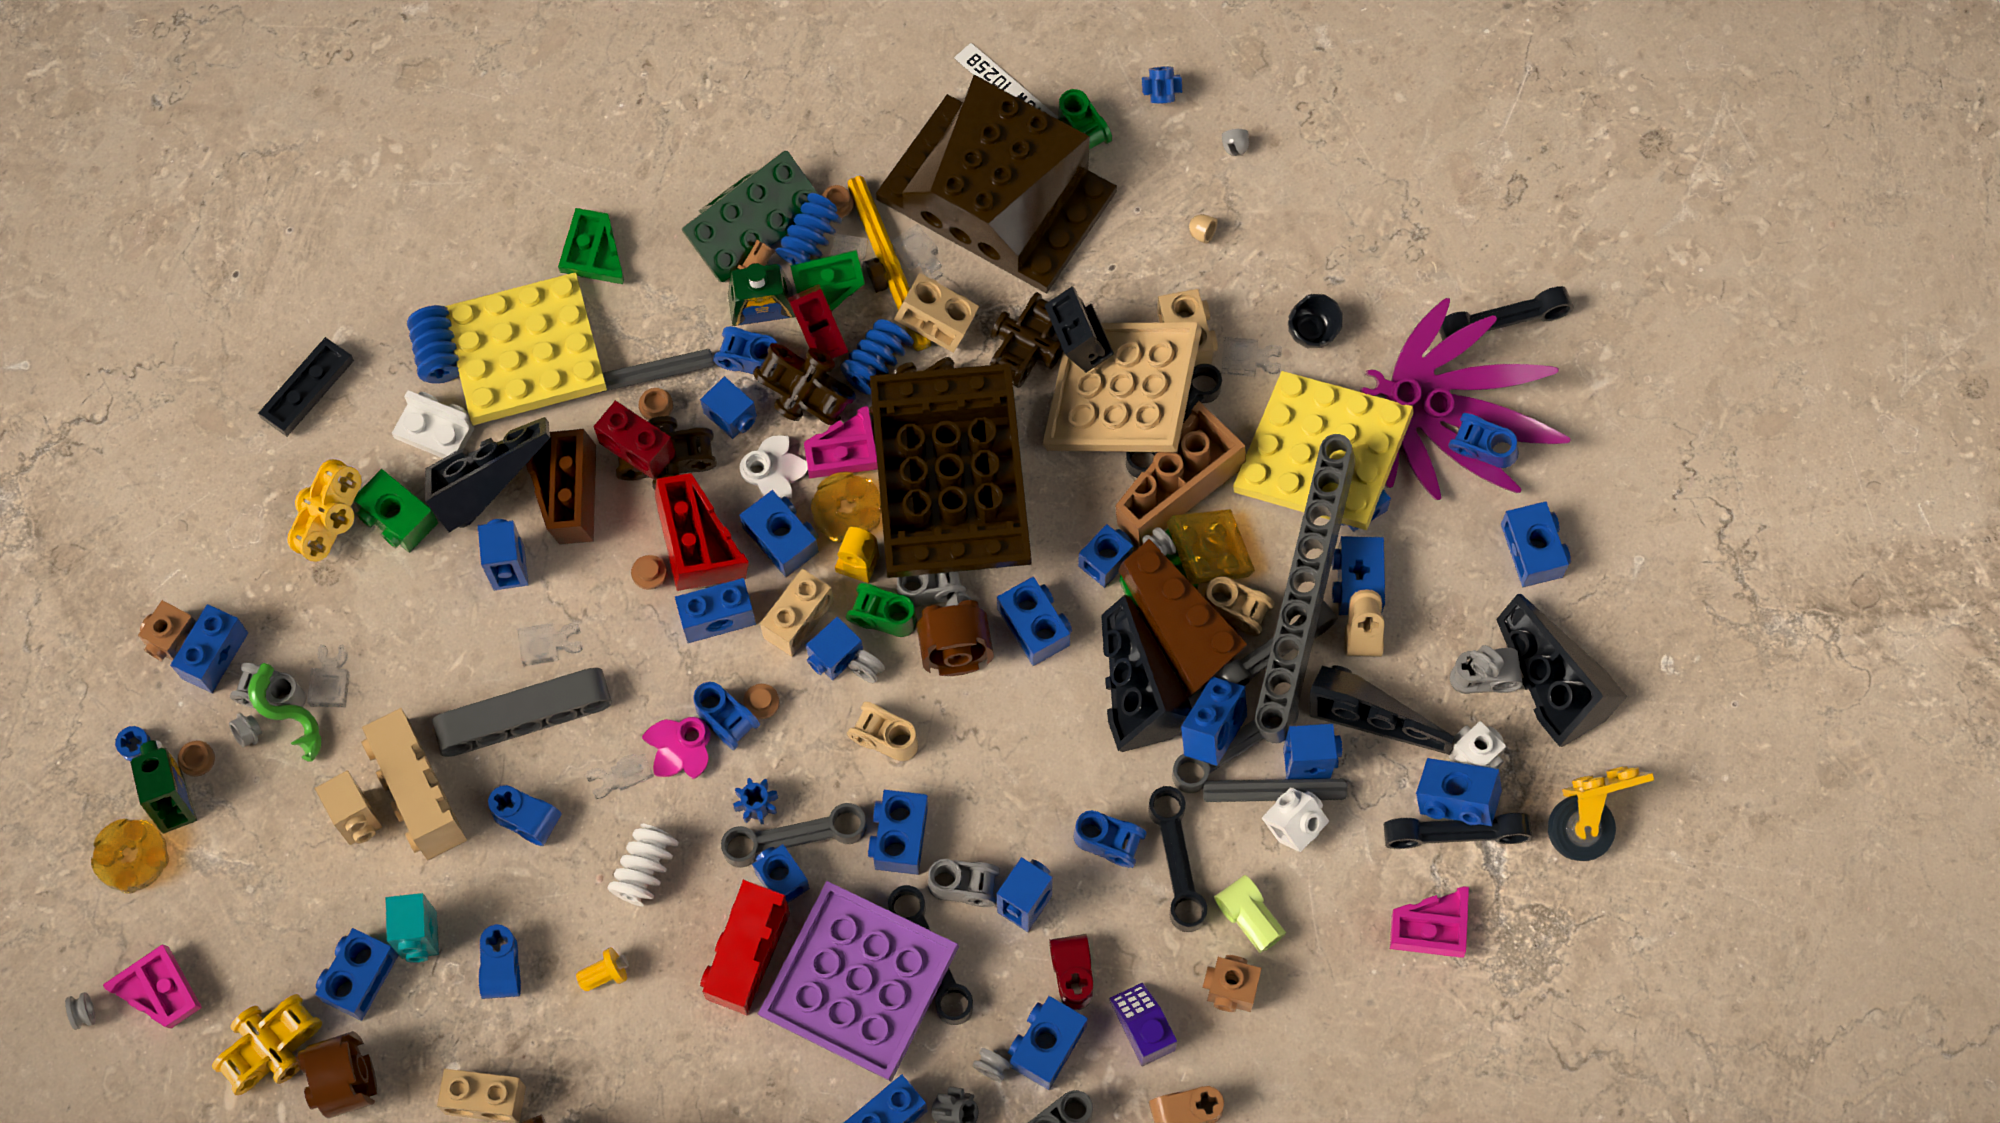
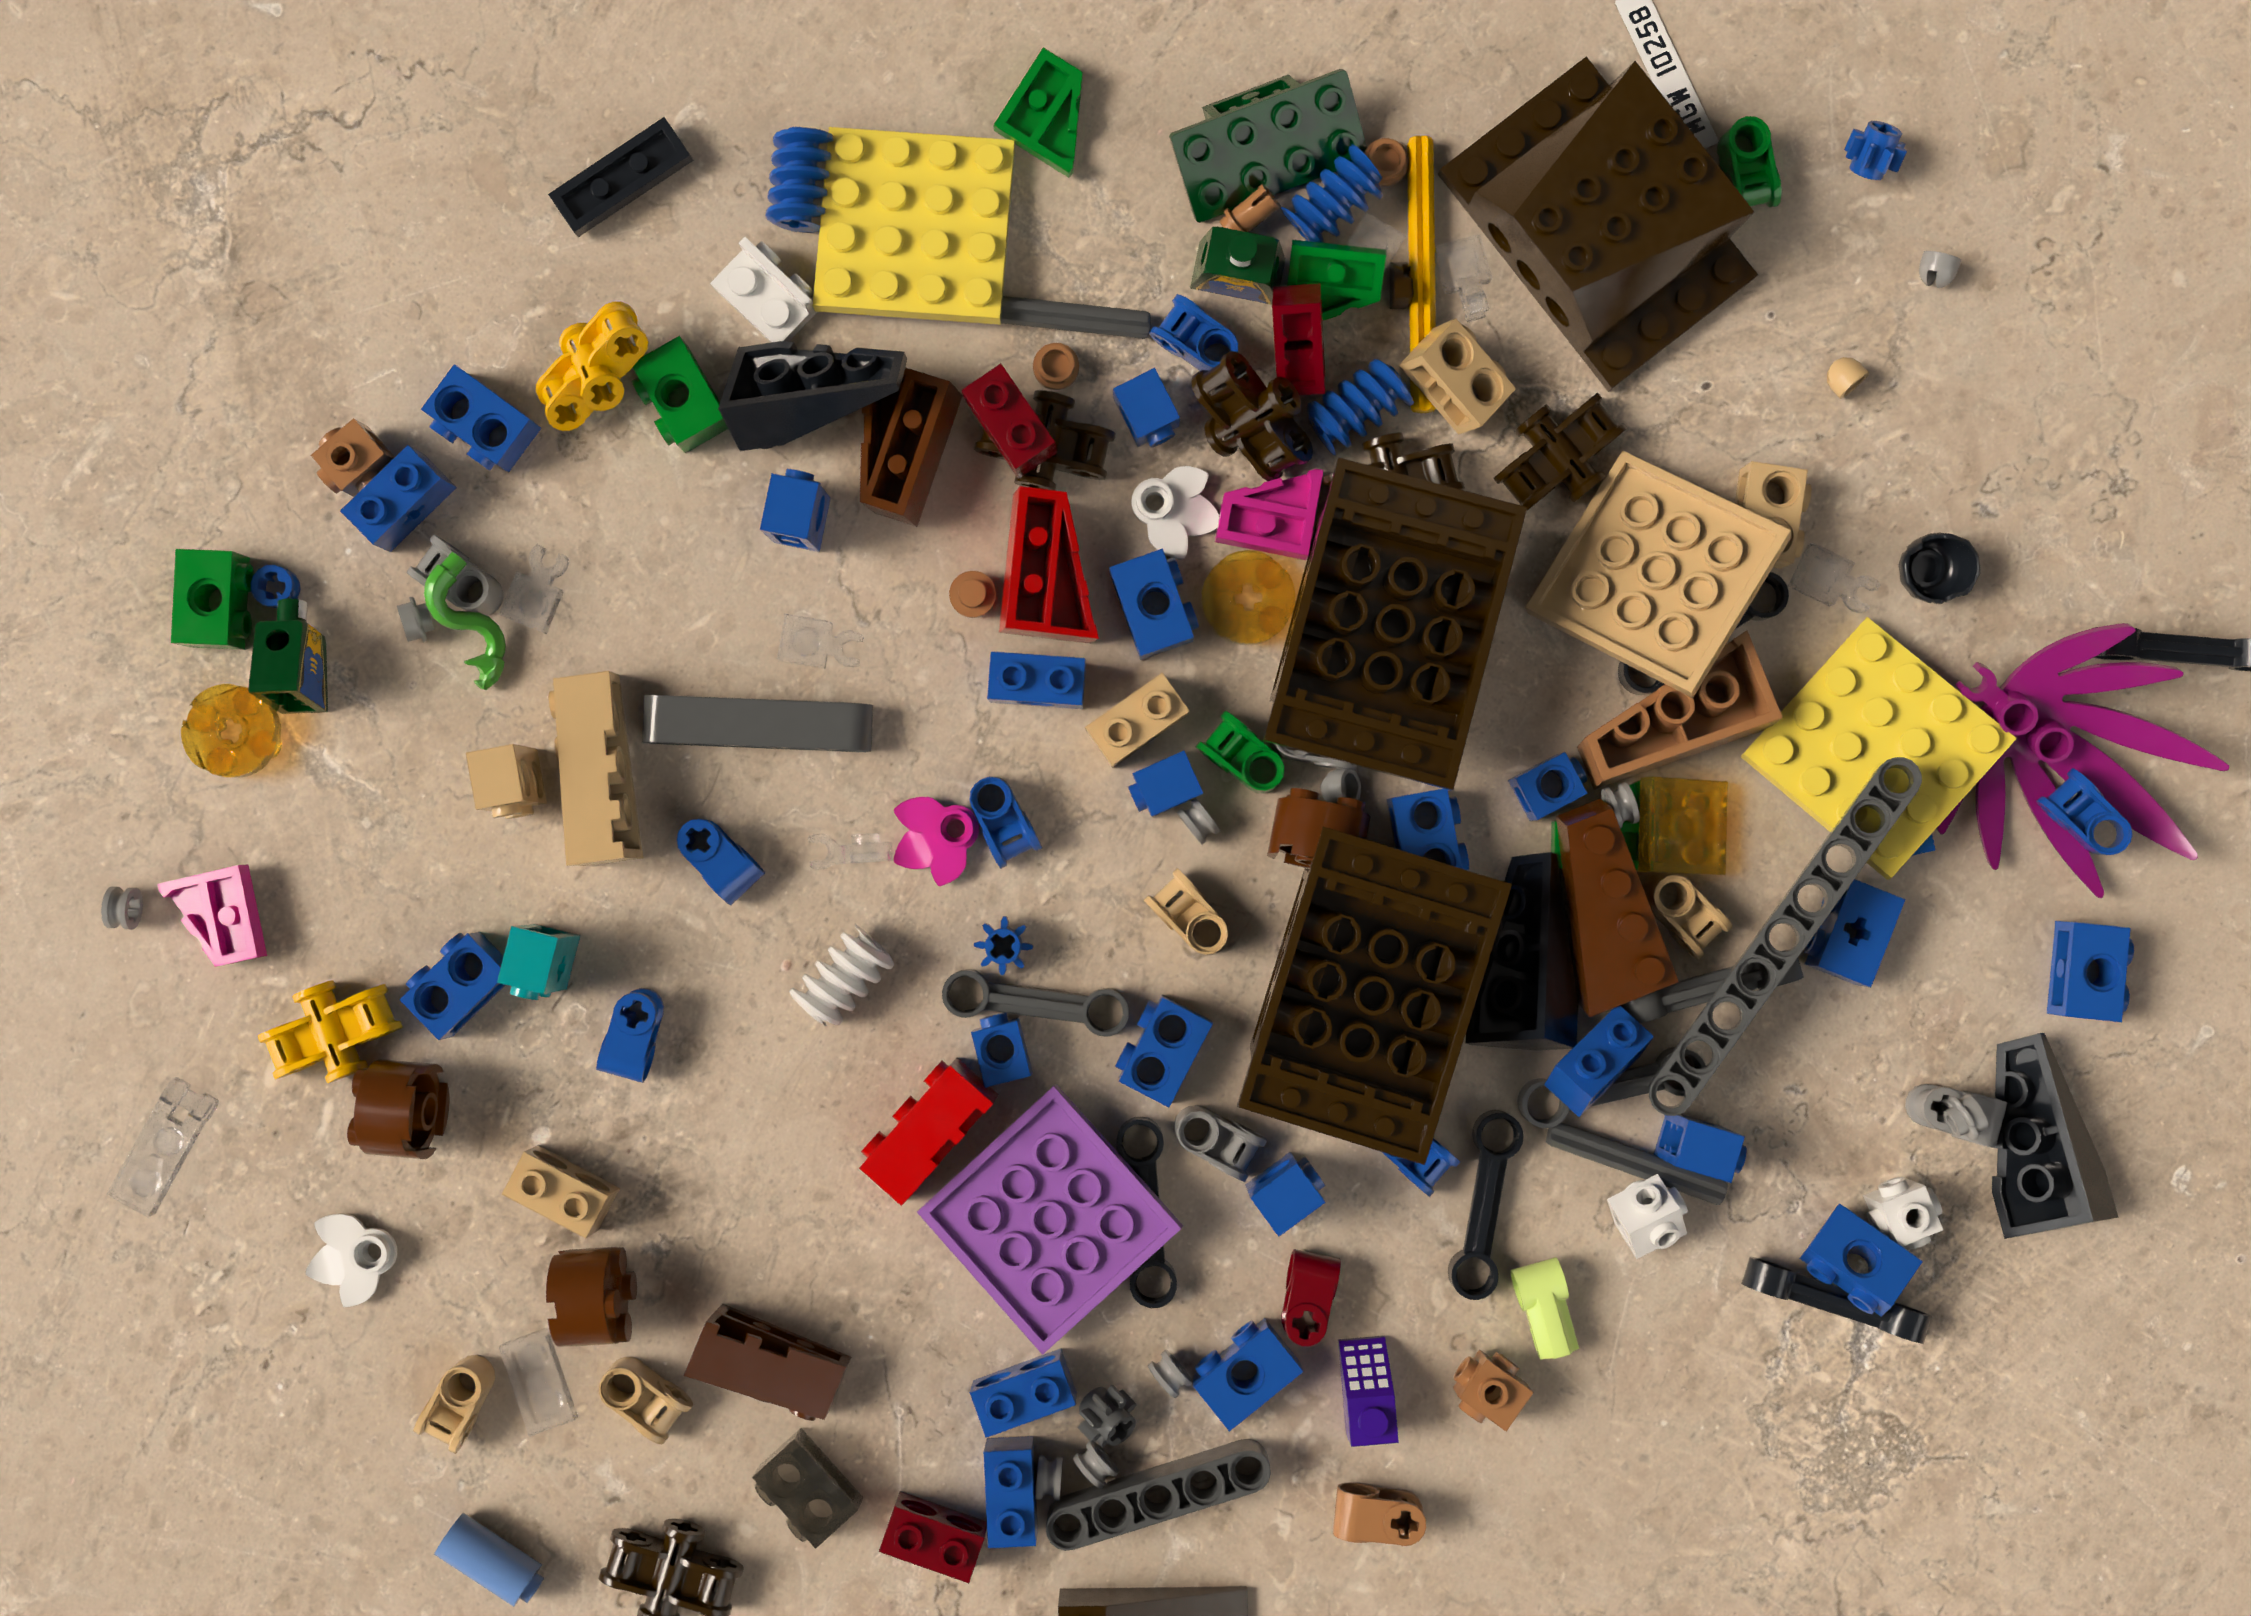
camera: 20 degrees right, 20 degrees up
(75, 752) = (195, 579): none -> green brick
(196, 758) = (345, 634): medium nougat plate -> none
(257, 569) = (484, 414): none -> blue brick
(609, 968) = (761, 1089): yellow piece -> none
(761, 701) = (1054, 817): medium nougat plate -> none
(858, 554) = (1237, 673): yellow leg -> none
(1029, 718) = (1372, 994): none -> dark brown wedge
(1078, 330) = (1632, 478): black hinge -> none
(1357, 704) = (1783, 1098): black wedge -> none
(1365, 625) = (1832, 1004): tan piece -> none
(1432, 925) = (1758, 1401): dark pink wing -> none
(1582, 823) = (1994, 1349): plate -> none

